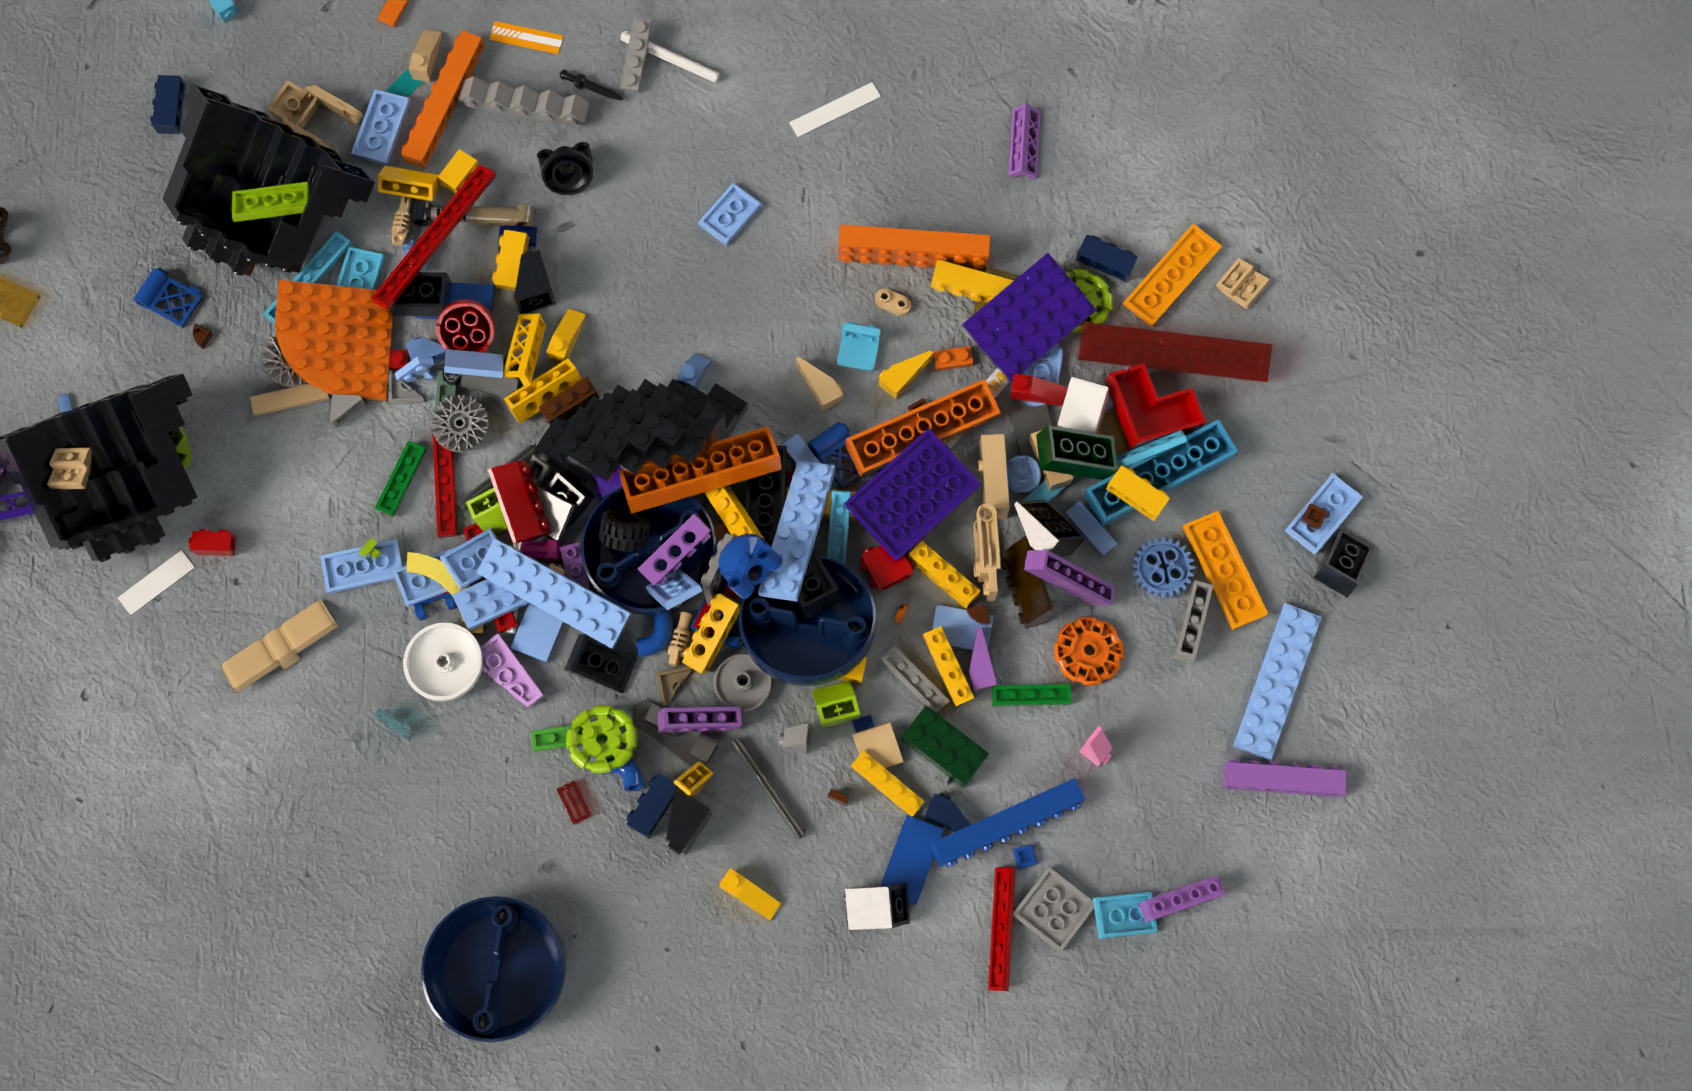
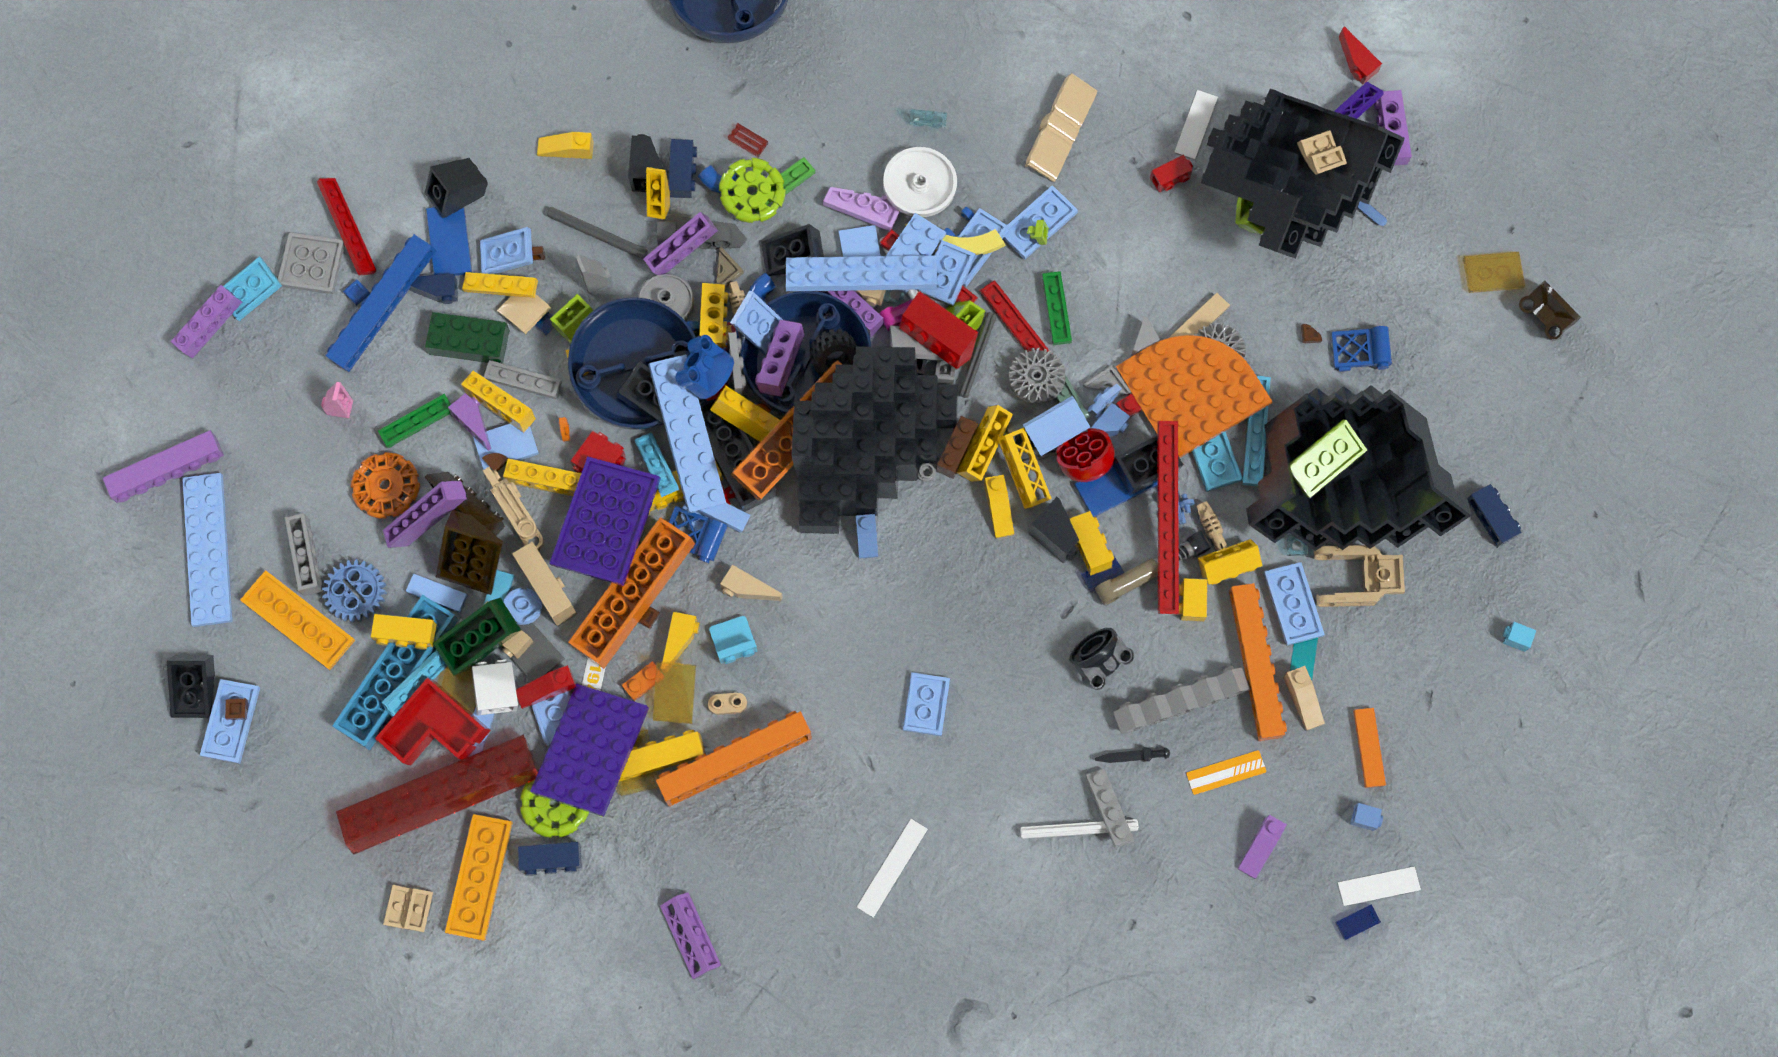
camera: 150 degrees right, 0 degrees up
(864, 811) = (506, 251): none -> light blue tile
(932, 329) = (674, 692): none -> clear yellow tile

